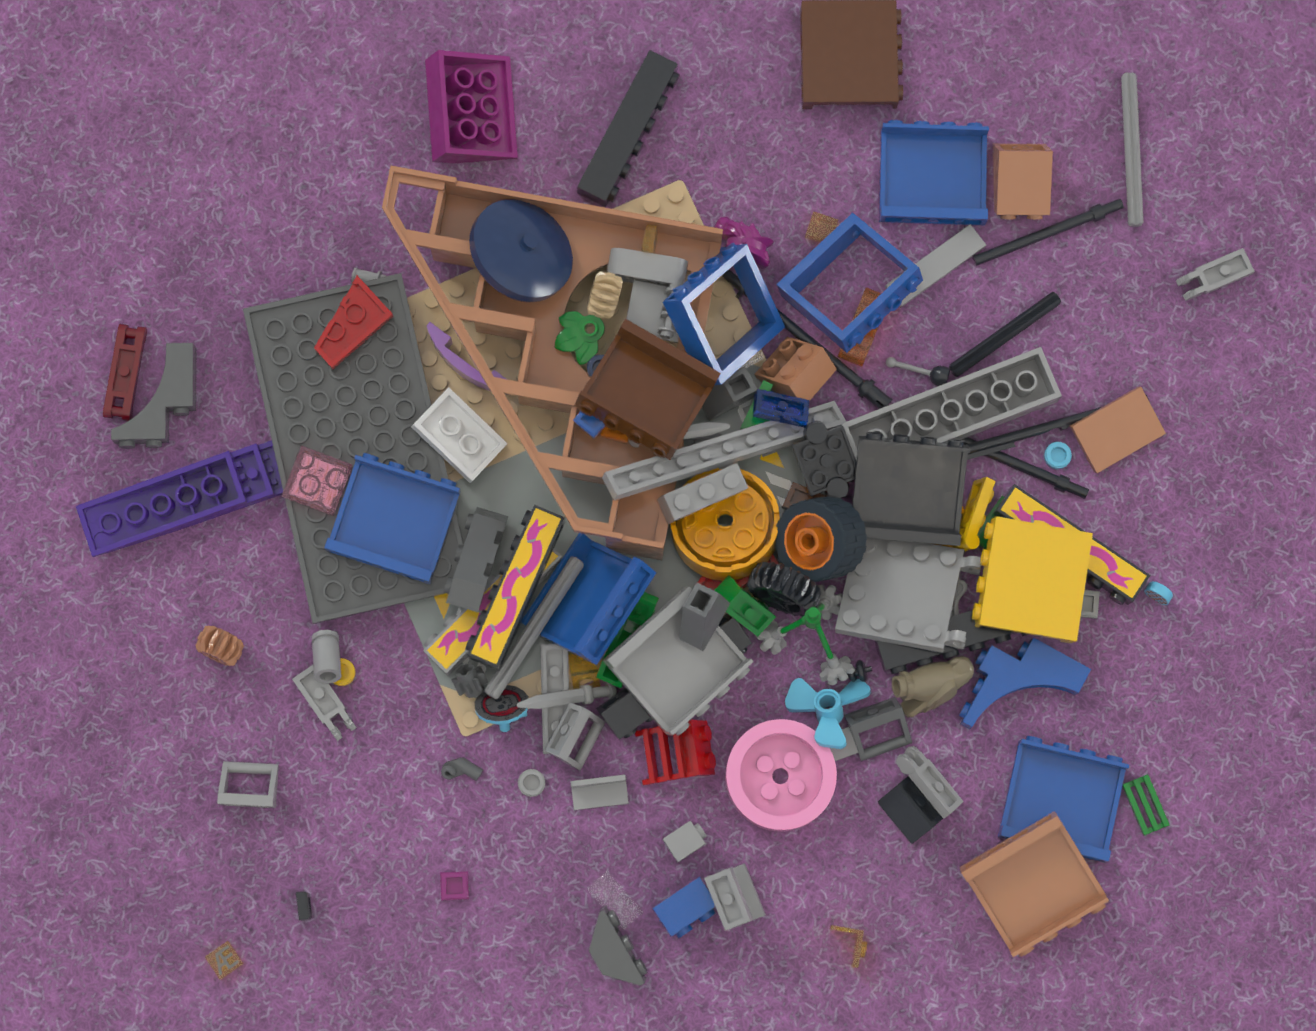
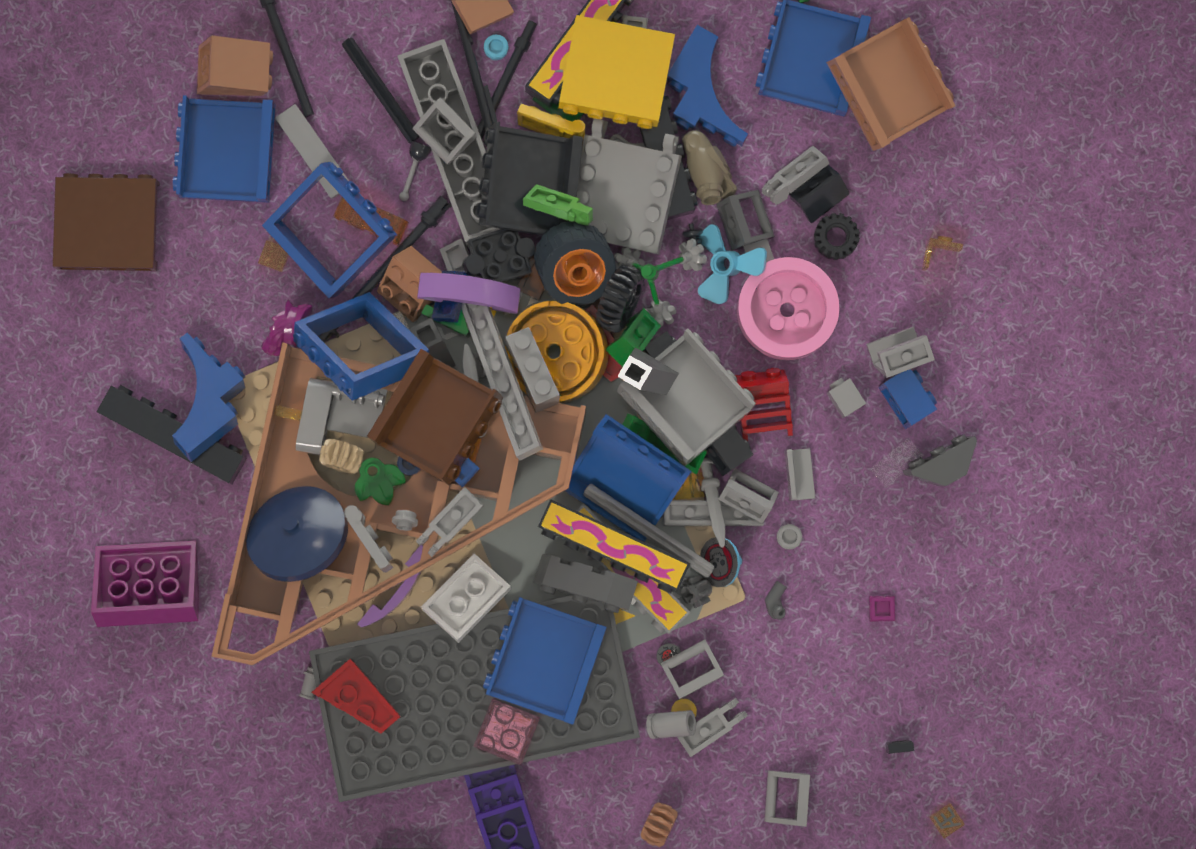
camera: 85 degrees left, 5 degrees up
(373, 689) = (699, 682): none -> light grey tile
(400, 655) = (667, 651): none -> tile
(517, 319) = (368, 537): none -> light grey hinge
(535, 358) = (405, 520): none -> light grey plate
(537, 406) = (451, 519): none -> light grey hinge
(650, 164) = (211, 412): none -> blue arch
(786, 427) = (469, 290): none -> medium lavender slope
(874, 816) = (843, 223): none -> black tyre
(883, 518) = (558, 205): none -> bright green hinge
(955, 422) = (457, 124): none -> light grey tile

